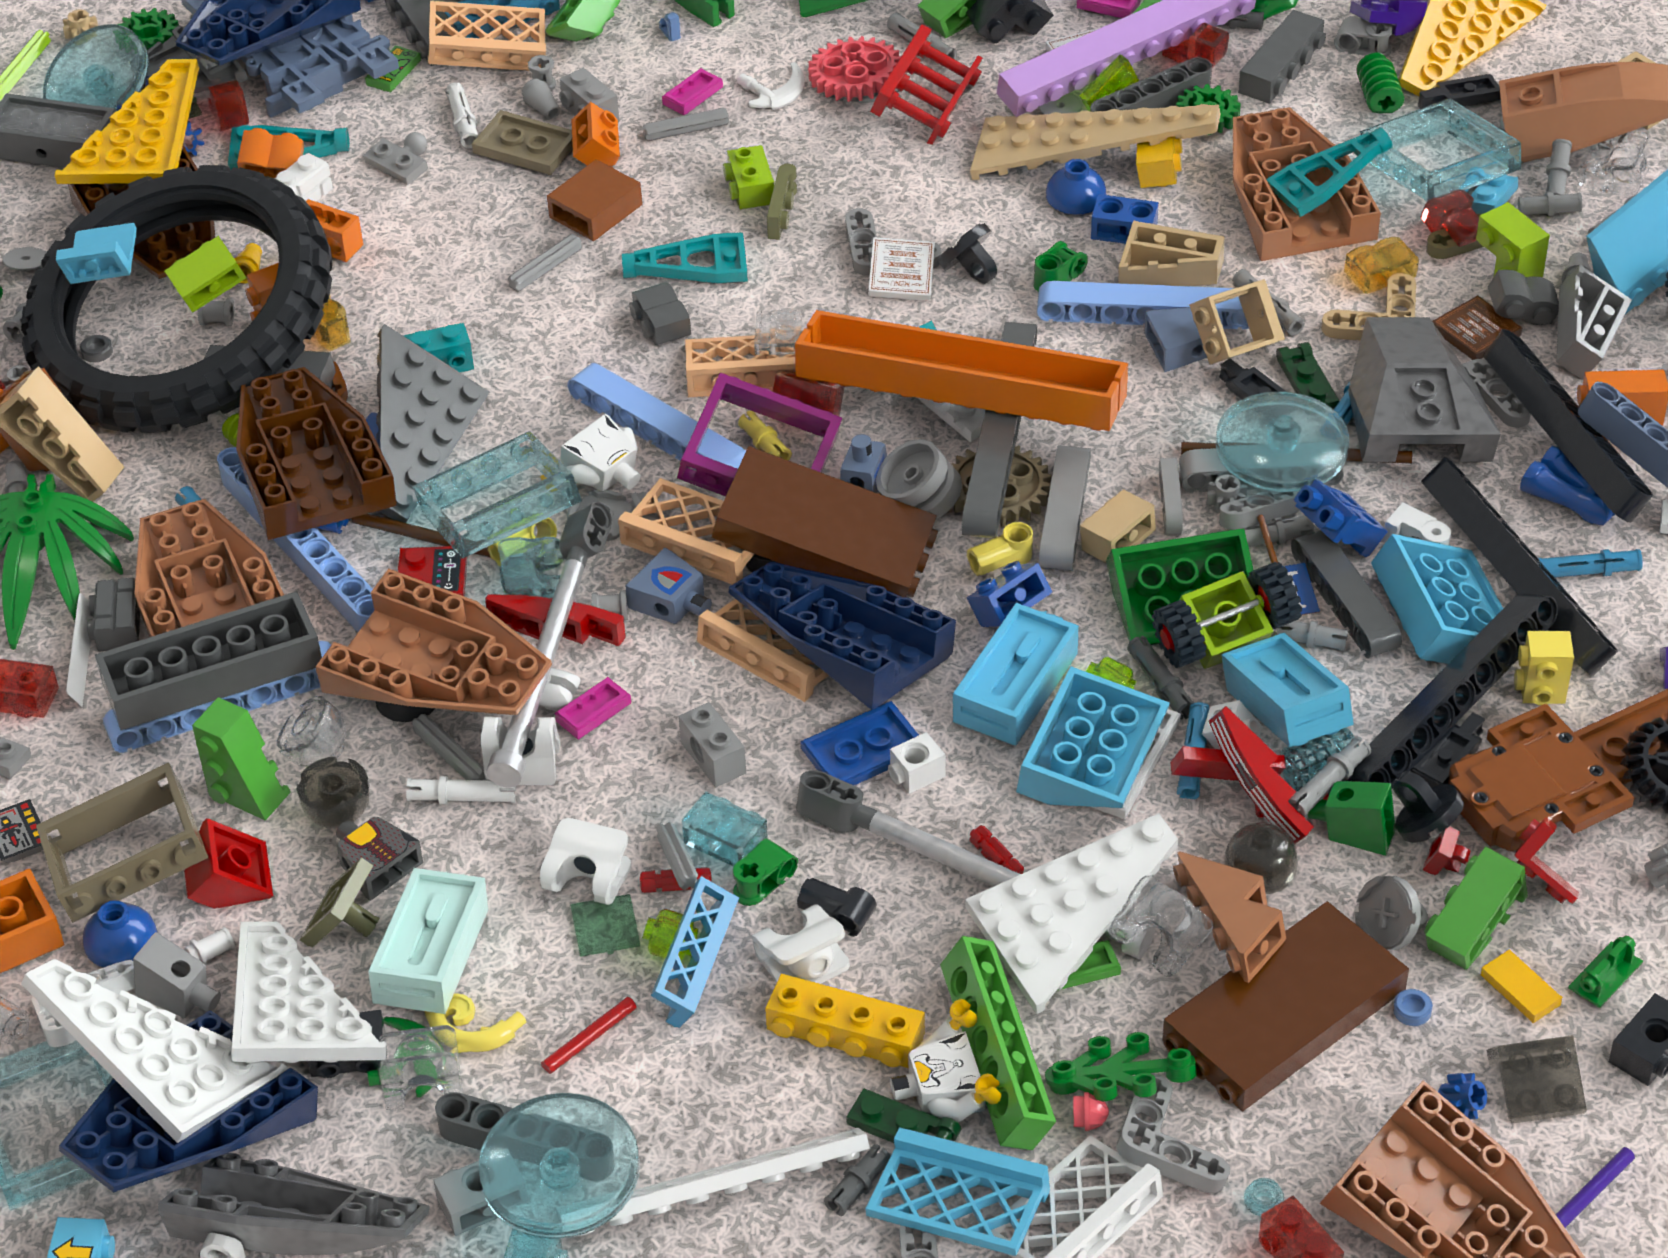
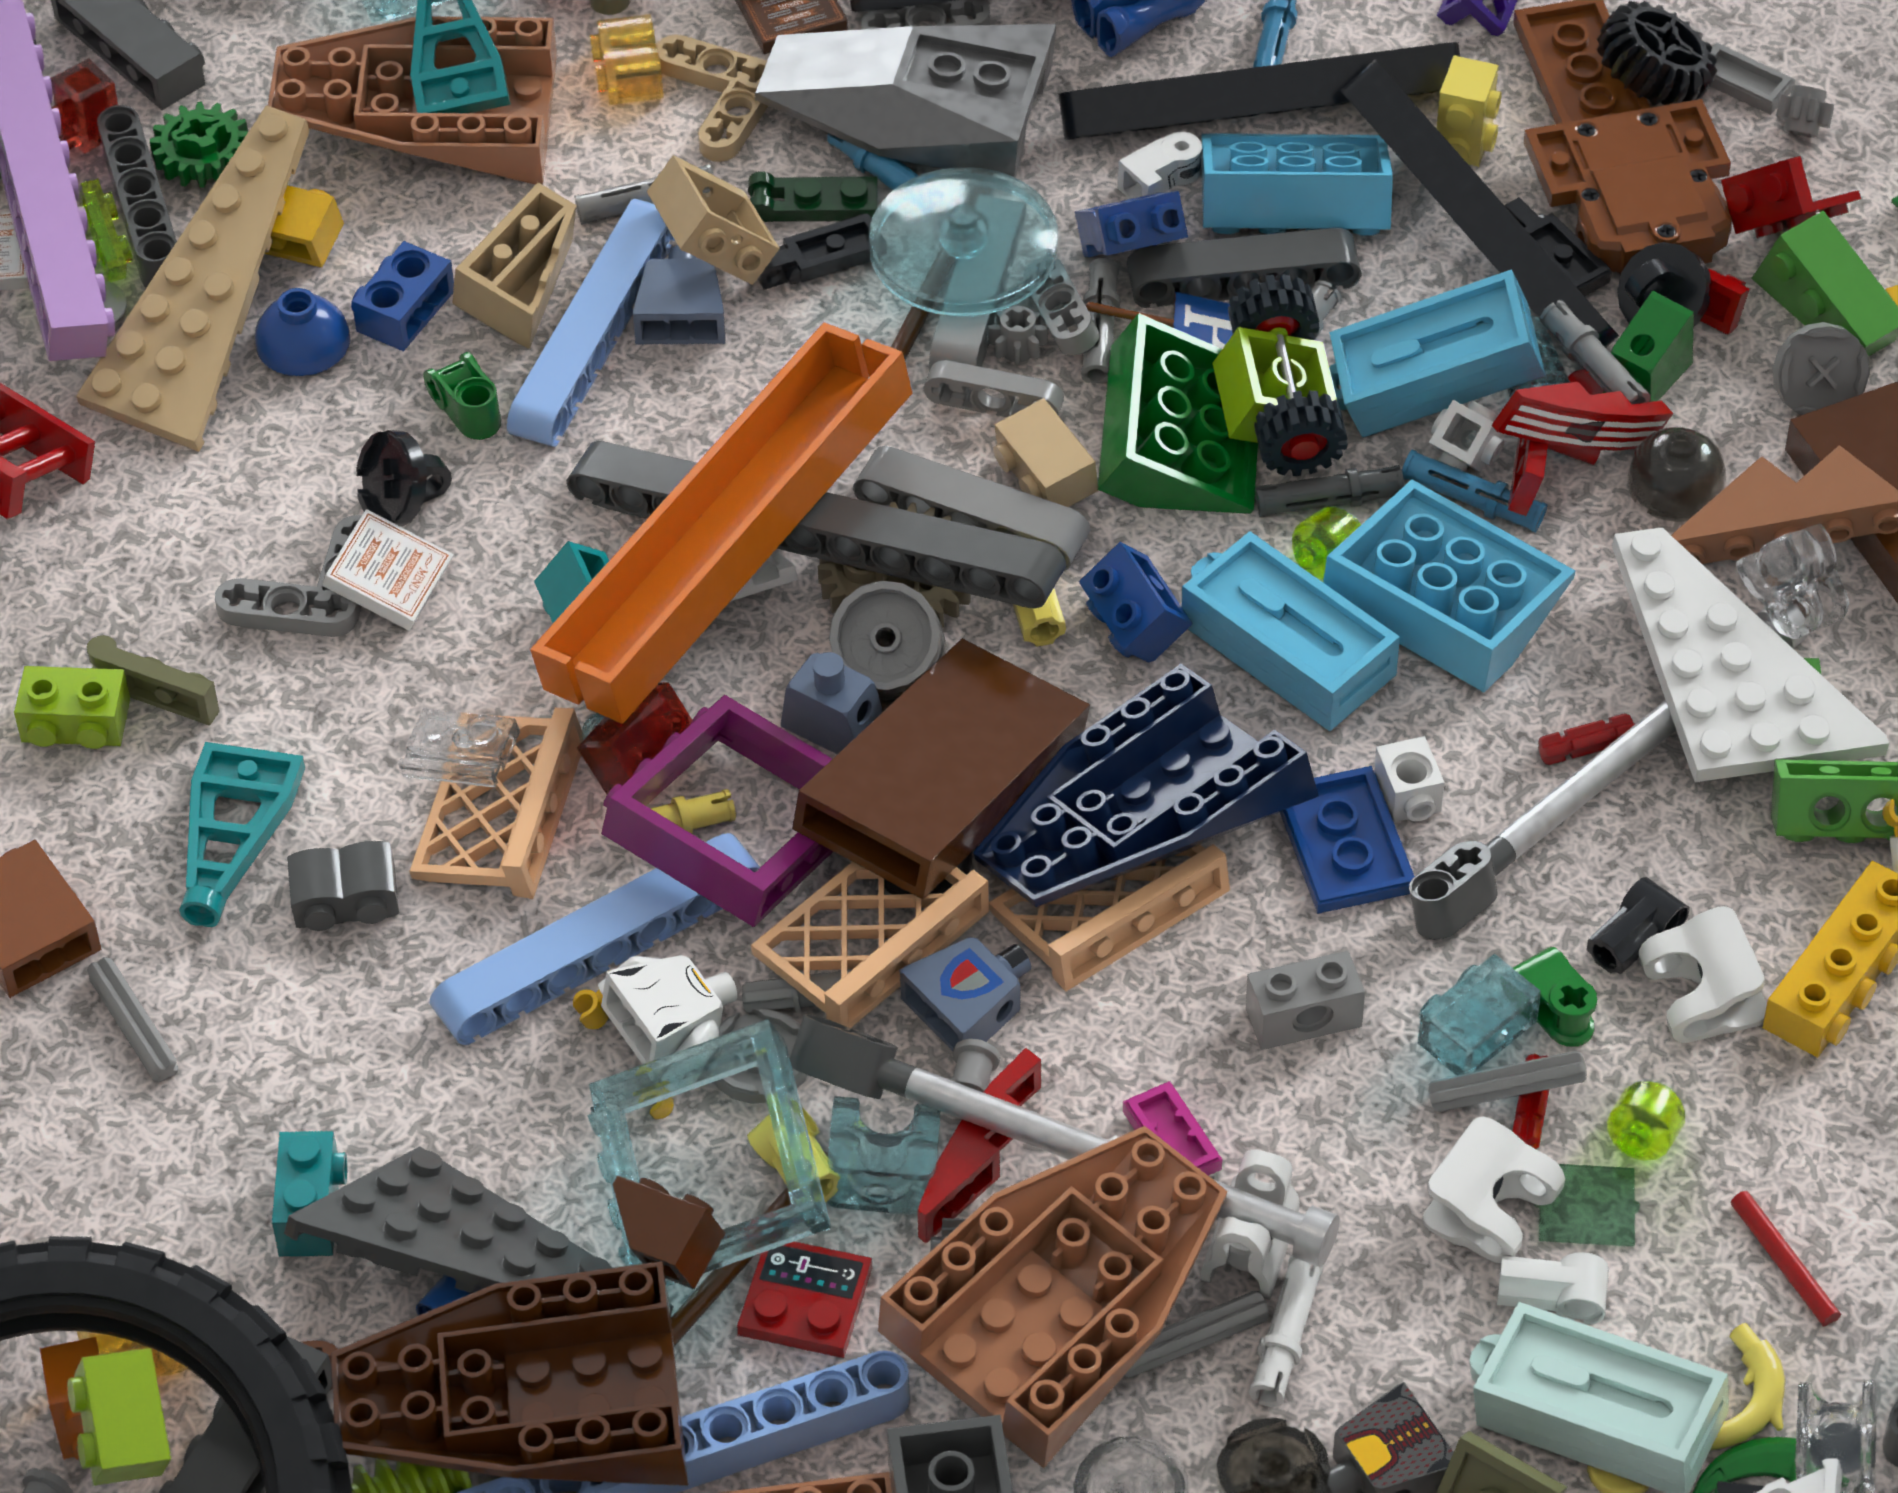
camera: 75 degrees left, 5 degrees up
(425, 479) = (668, 1229): none -> reddish brown slope
(527, 914) = (1570, 1287): none -> white piece
(703, 950) = (1707, 1094): fence -> none

